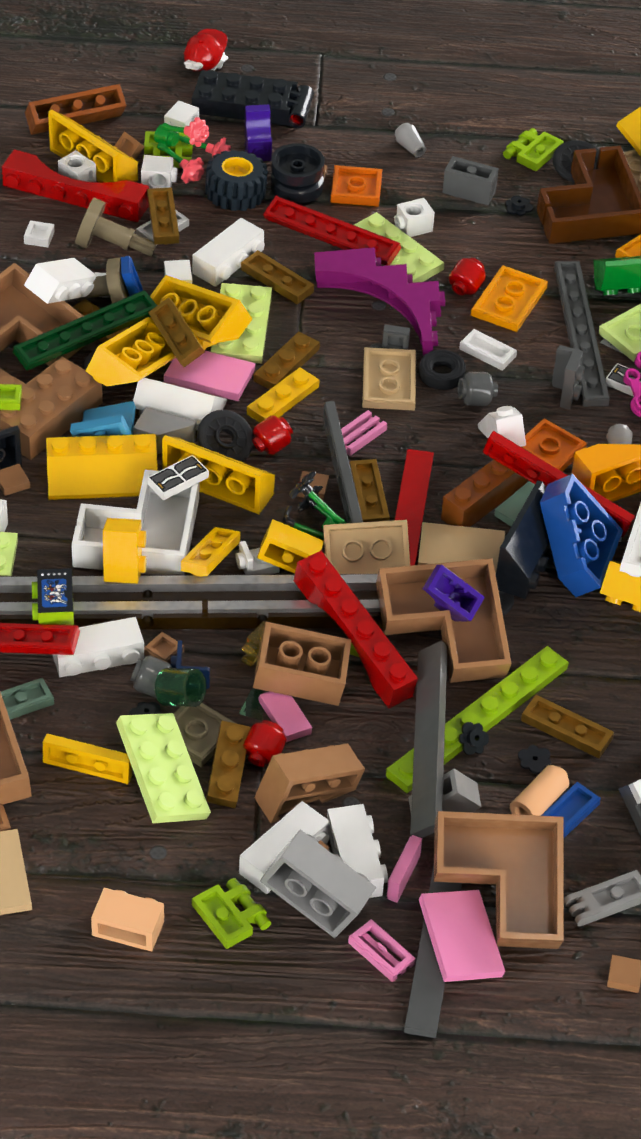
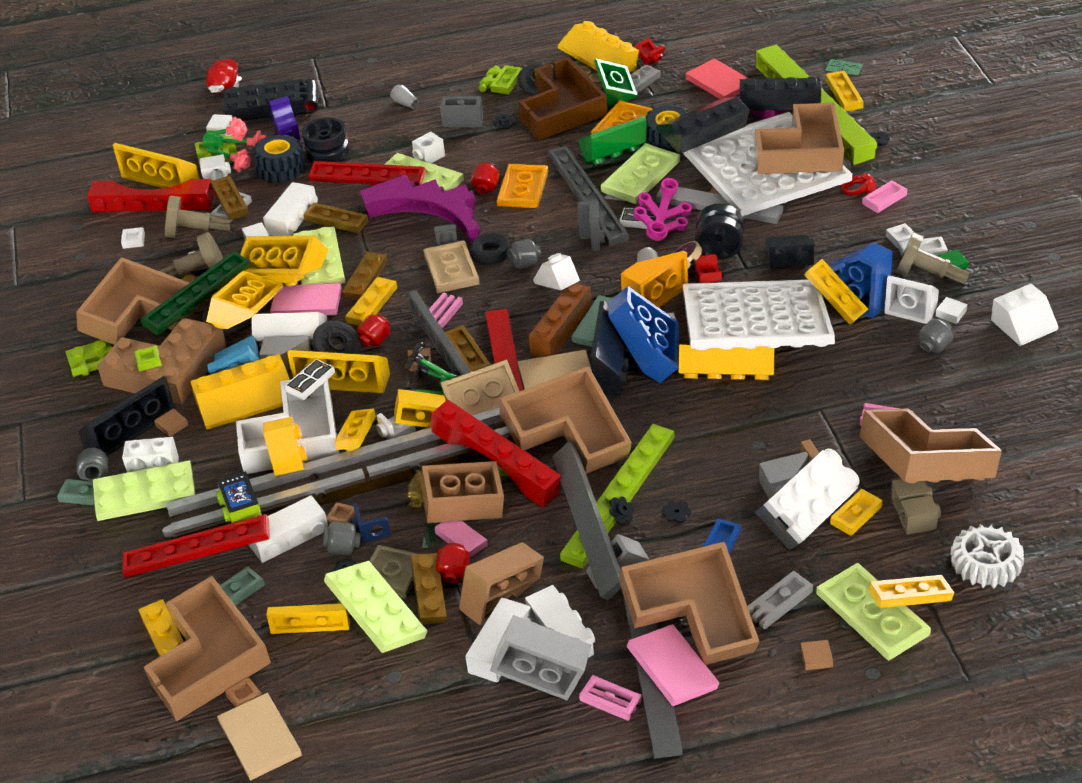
camera: 10 degrees left, 5 degrees down
(60, 280) = (163, 260): white brick -> none
(77, 167) = (148, 180): white brick -> none
(80, 106) = (141, 136): dark orange brick -> none
(127, 919) = (388, 737): light nougat brick -> none
(129, 145) = (185, 154): medium nougat tile -> none
(130, 276) = (218, 244): blue tile -> none
(176, 332) = (270, 274): pearl gold plate -> none
(180, 687) = (368, 538): clear green piece -> none
(224, 918) = (468, 710): lime plate -> none
(356, 185) = (374, 139): orange tile -> none
(404, 868) = (604, 626): bright pink tile -> none
(453, 594) = (567, 401): dark purple arch -> none
(488, 349) = (520, 225): white tile -> none
(536, 469) = (592, 295): red tile -> none
(541, 792) = (693, 532): light nougat brick -> none
(553, 444) = (600, 278): orange tile -> none
(567, 726) = (692, 479): pearl gold plate -> none

